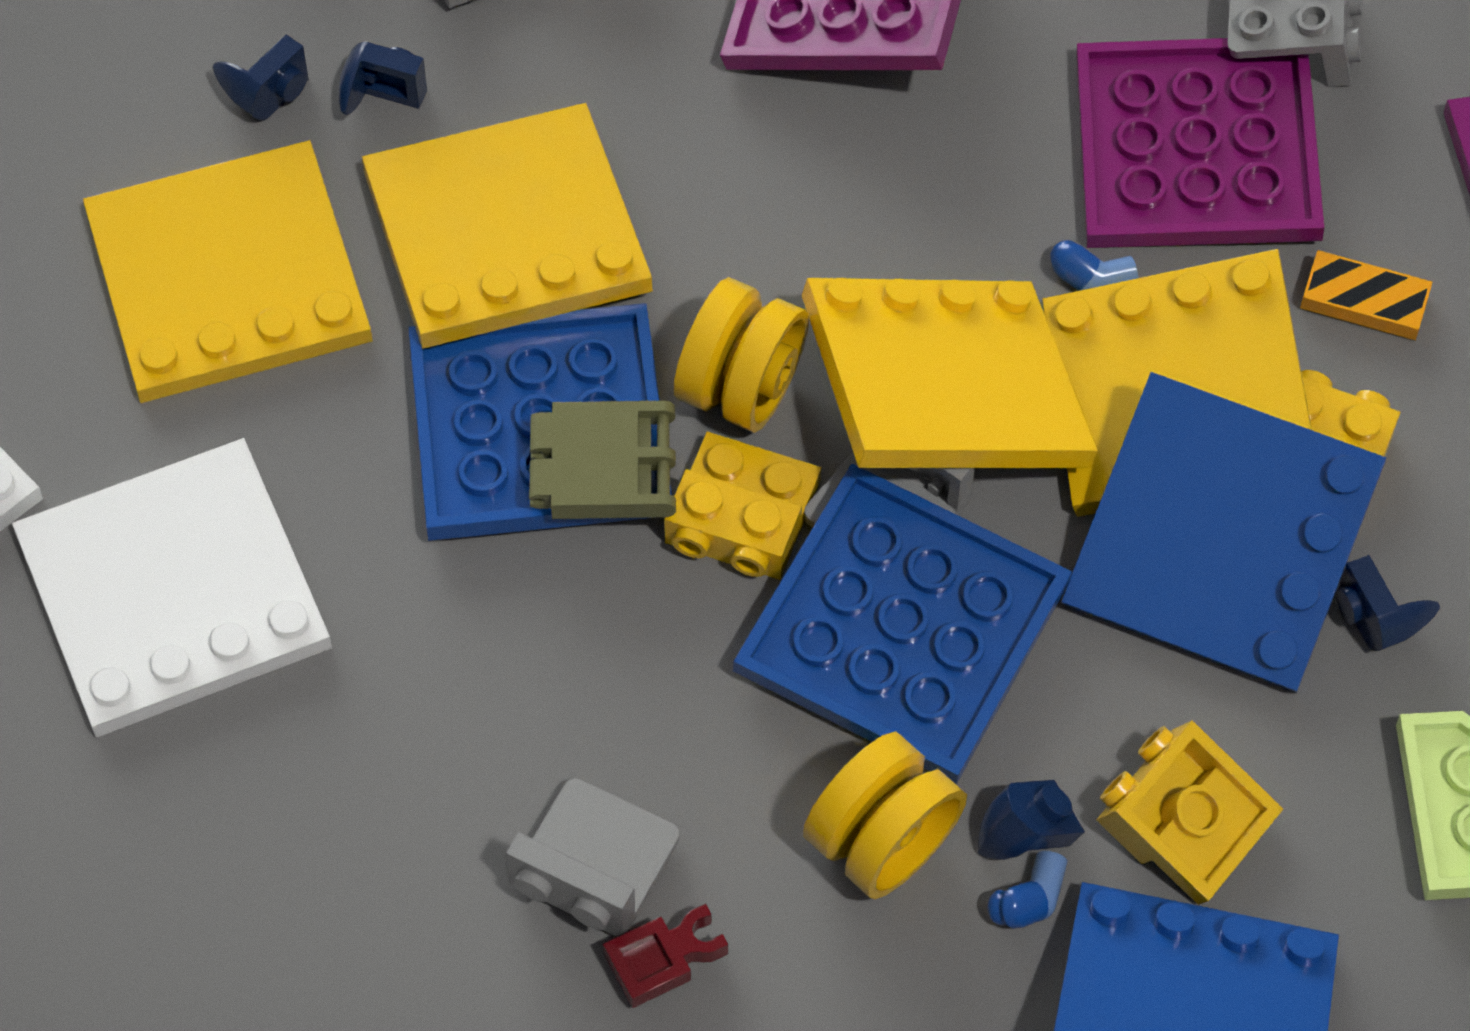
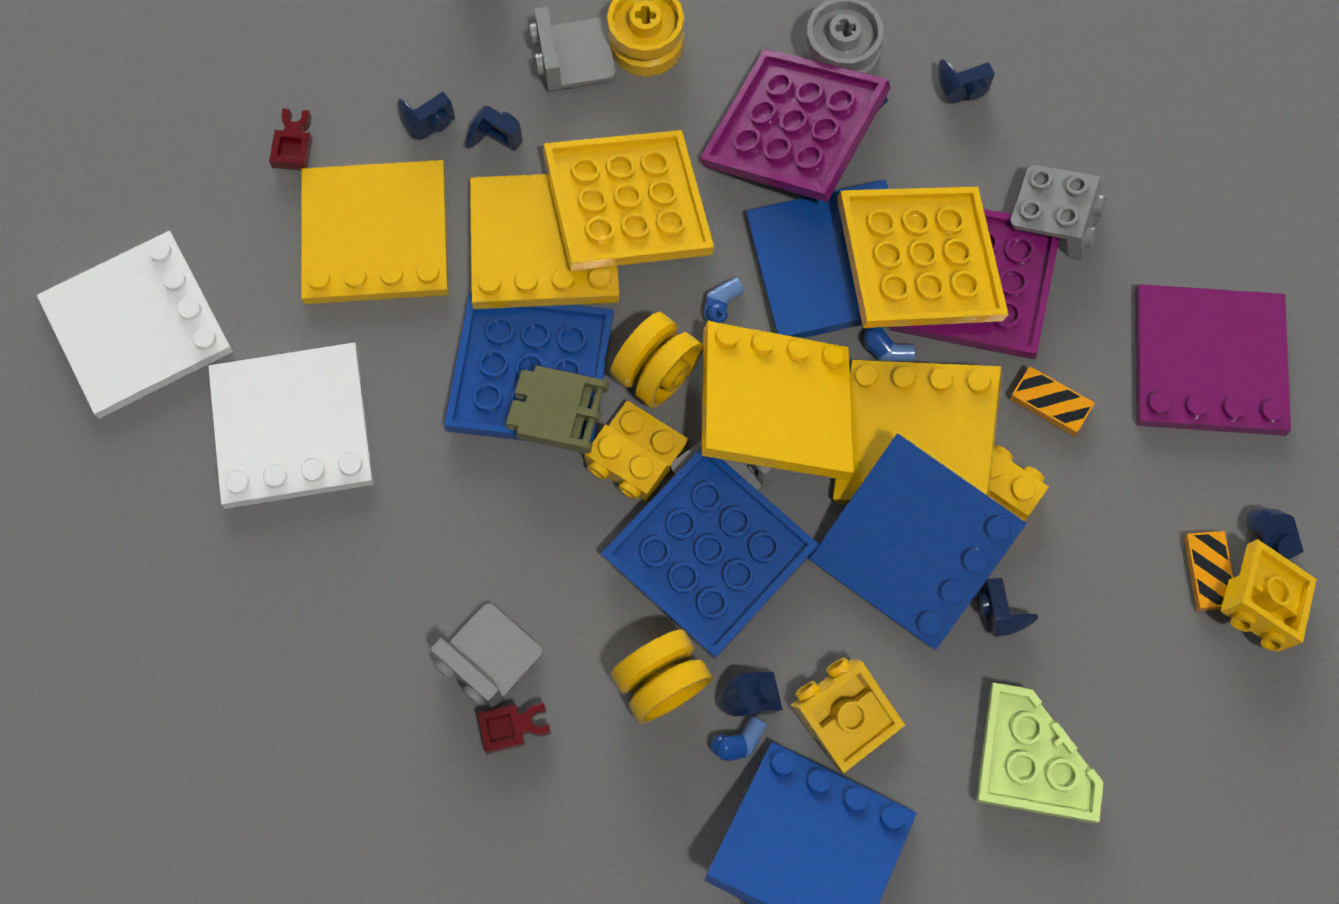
camera: 15 degrees right, 10 degrees up
(57, 165) = (293, 144): none -> dark red plate
(624, 136) = (627, 200): none -> yellow plate
(807, 253) = (718, 298): none -> arm
(971, 161) = (806, 264): none -> blue plate
(1108, 121) = (921, 256): none -> yellow plate

